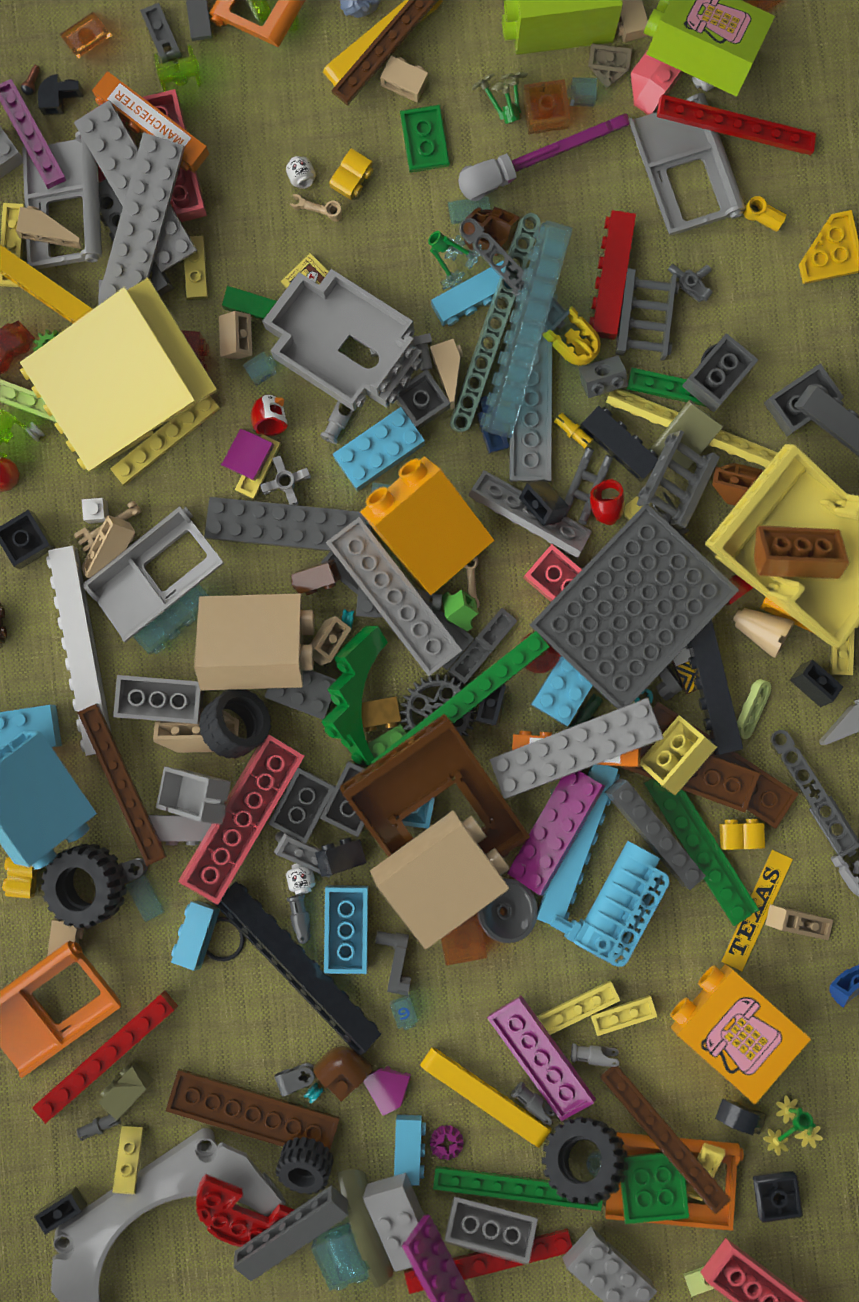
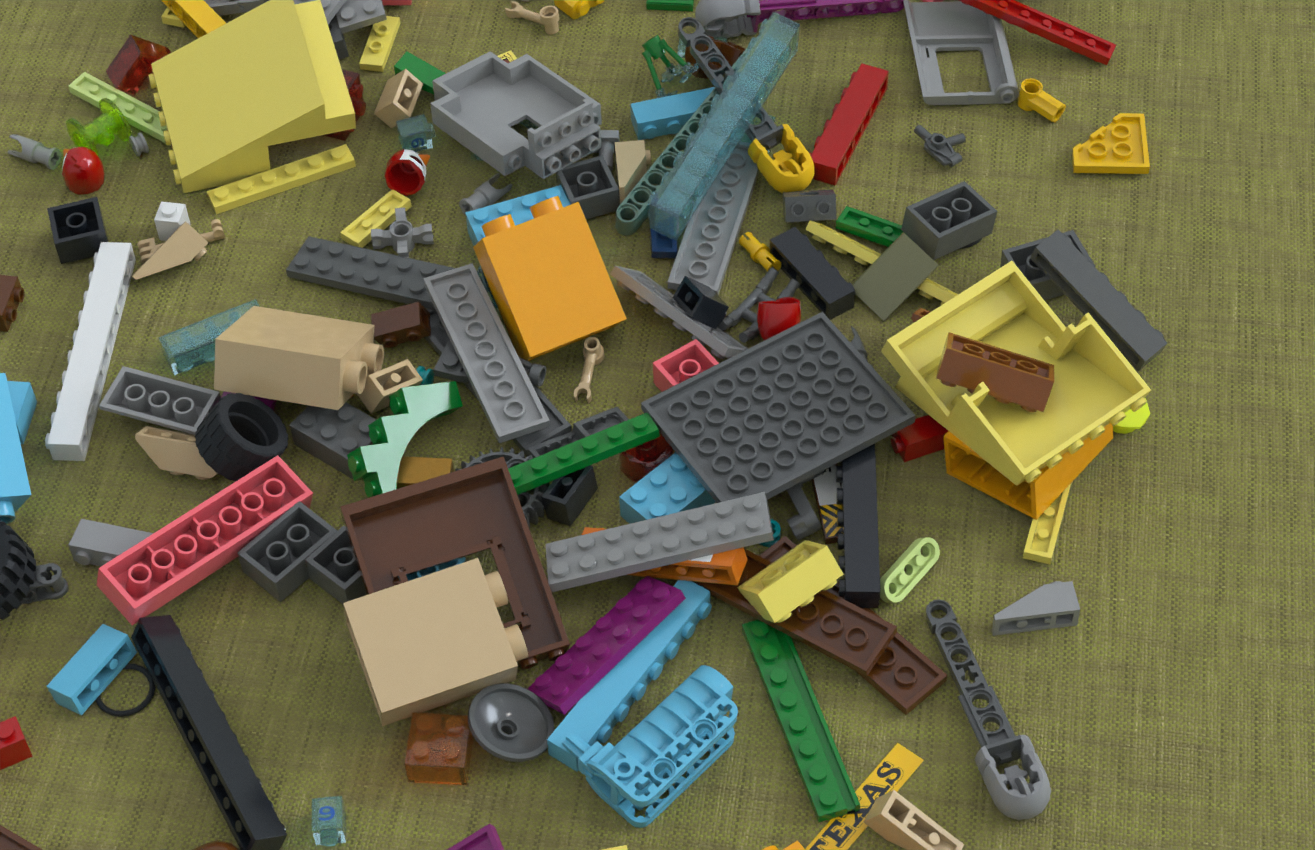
camera: 15 degrees right, 35 degrees down
(122, 784) = (76, 481): reddish brown tile -> none
(127, 589) = (180, 292): light grey piece -> none
(145, 898) = (47, 621): clear light blue tile -> none
(193, 795) = (159, 493): light grey piece -> none
(247, 454) = (369, 205): magenta slope -> none
(297, 851) = (272, 604): light grey piece -> none
(299, 918) = (235, 680): dark grey piece -> none
(300, 879) = (253, 636): white head -> none
(340, 857) = (313, 615): black brick -> none
(346, 929) = (289, 701): medium azure brick -> none
(397, 983) = (334, 779): dark grey beam -> none
(460, 609) = (562, 385): bright green brick -> none
(626, 322) = (860, 149): dark grey fence -> none
(655, 833) = (733, 660): dark grey brick -> none
(697, 481) = (877, 329): dark grey fence -> none
(742, 835) = (858, 709): yellow brick -> none
(764, 629) = (947, 485): tan cone -> none
(816, 683) = (999, 553): black brick -> none

